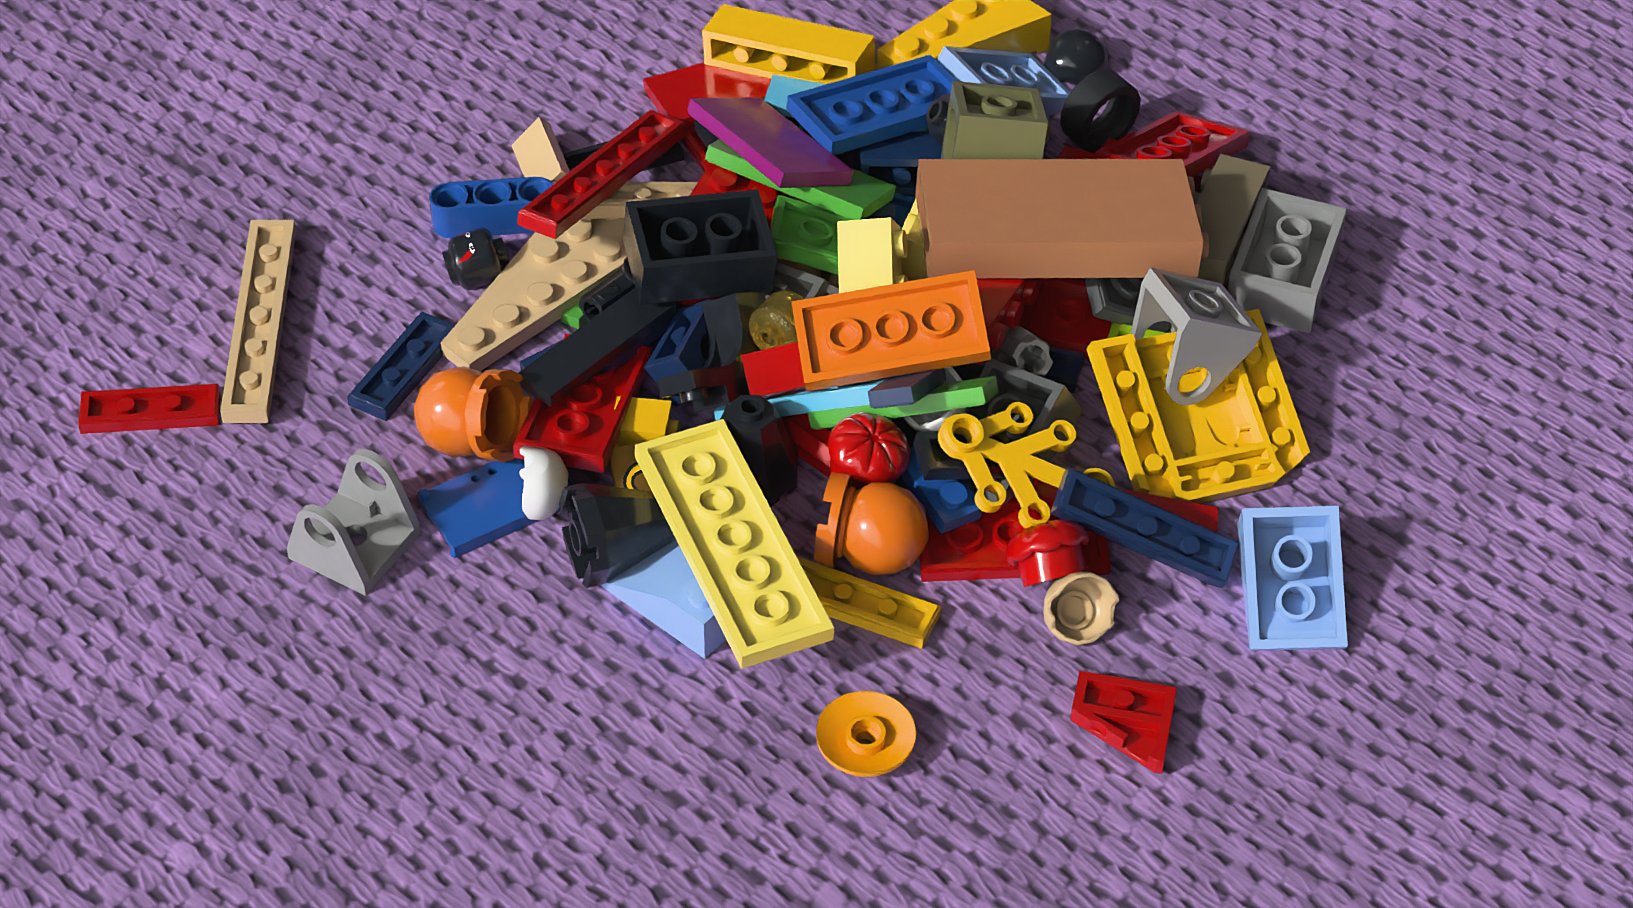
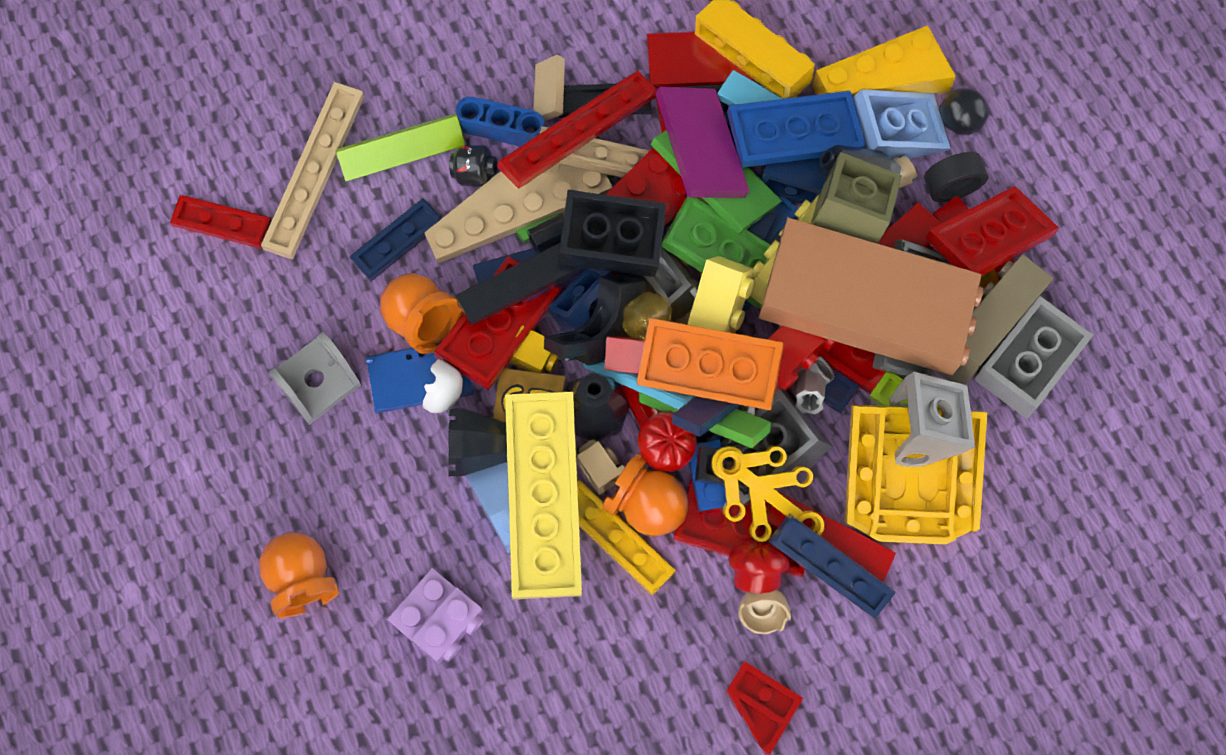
camera: 20 degrees right, 25 degrees up
(367, 266) = (400, 147): none -> lime tile
(426, 744) = (295, 572): none -> orange tile
(640, 749) = (437, 617): none -> lavender plate
(797, 518) = (599, 466): none -> tan brick
(868, 717) = (578, 643): light orange dish -> none
(1292, 578) = (920, 635): light blue slope -> none

